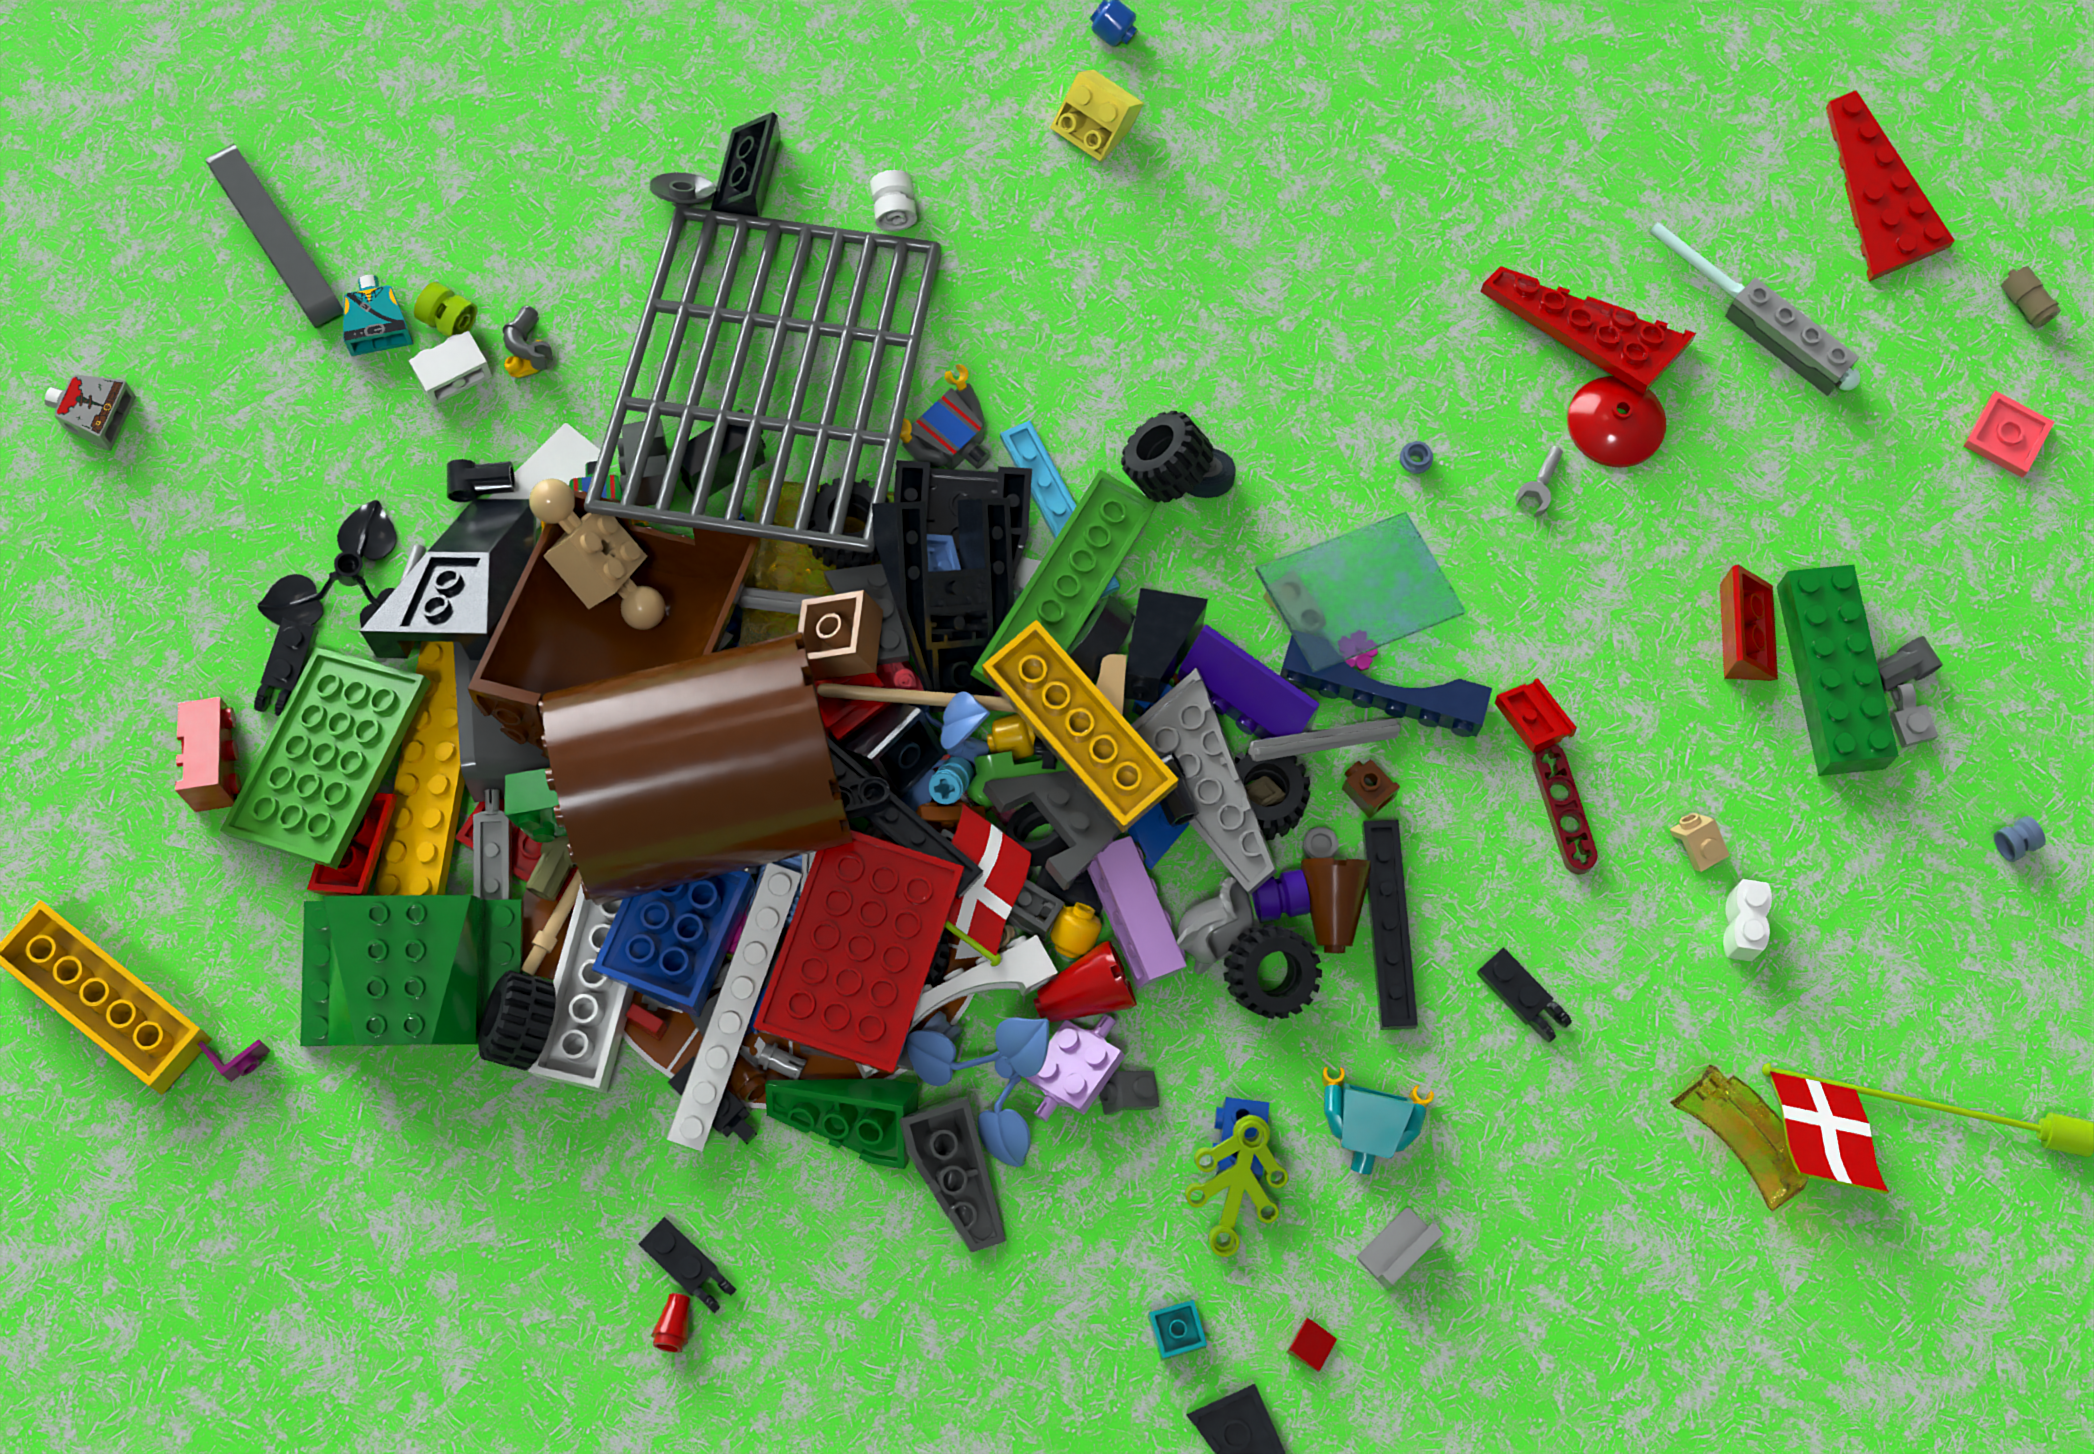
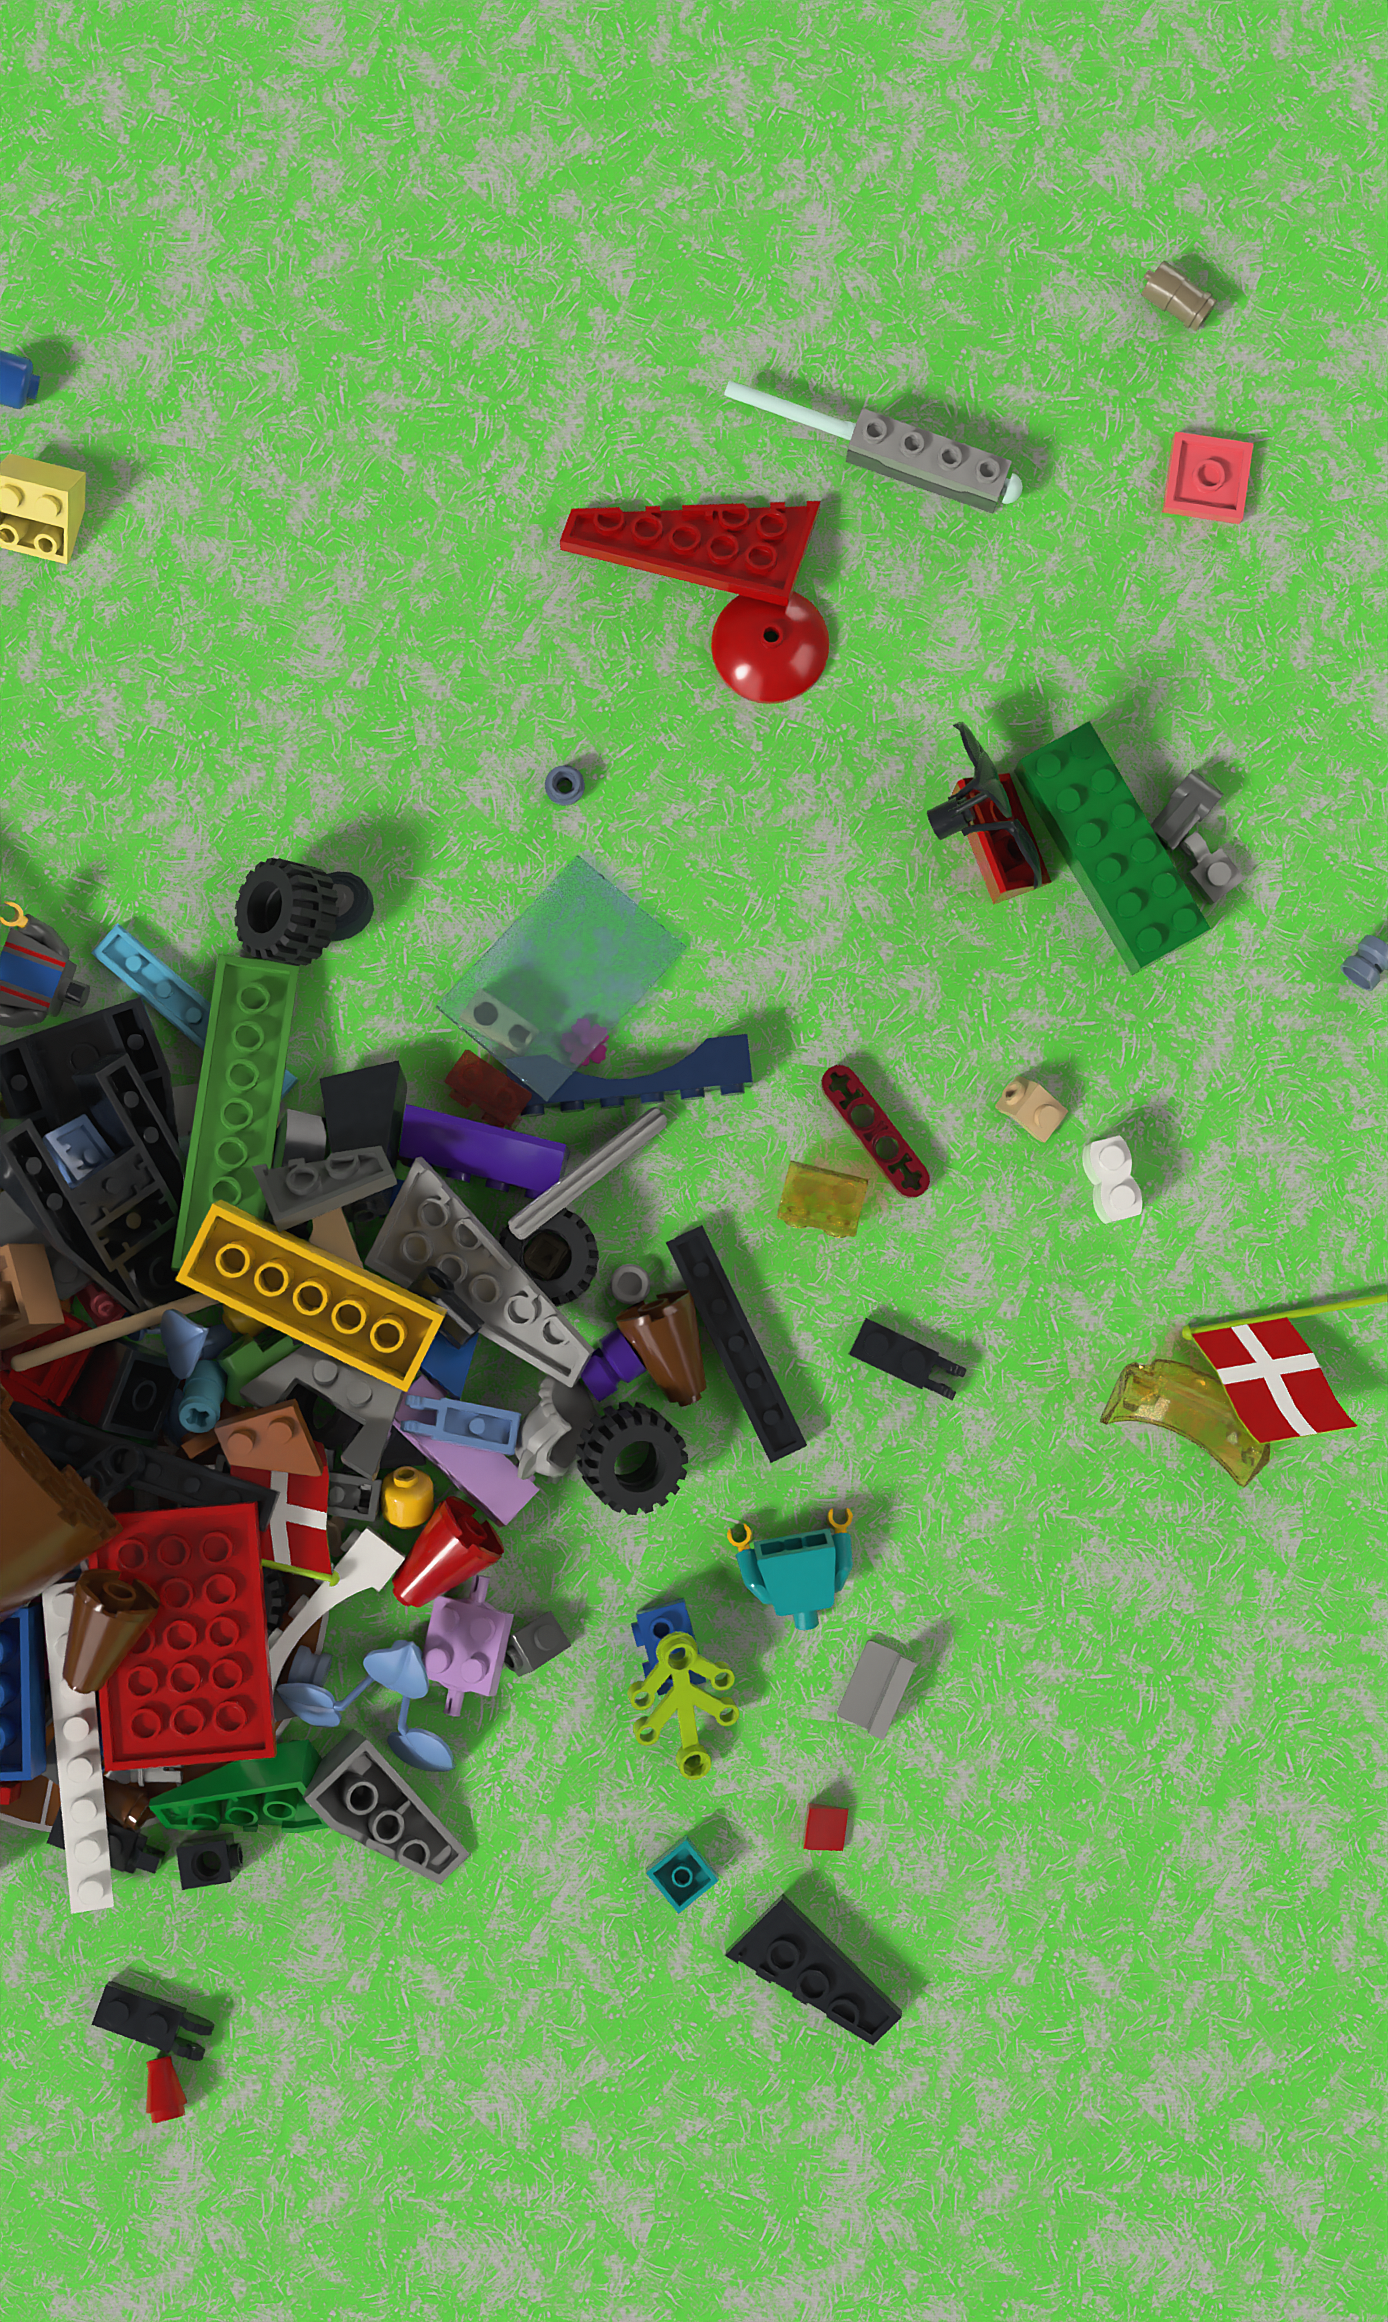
camera: 20 degrees left, 15 degrees up
(784, 1137) = (192, 1867): none -> black brick
(807, 907) = (104, 1626): none -> reddish brown cone
(994, 828) = (270, 1440): none -> dark orange wing
(1109, 649) = (318, 1187): none -> dark grey wing
(1150, 884) = (465, 1424): none -> medium blue hinge
(1268, 644) = (488, 1089): none -> clear red bracket
(1369, 798) = (665, 1212): reddish brown brick -> none
(1503, 839) = (822, 1199): none -> clear yellow bracket
(1535, 715) = (805, 1041): red plate -> none
(1538, 488) = (714, 750): light grey piece -> none
(1725, 585) = (958, 811): none -> black plant
(1884, 198) = (976, 235): red wing -> none

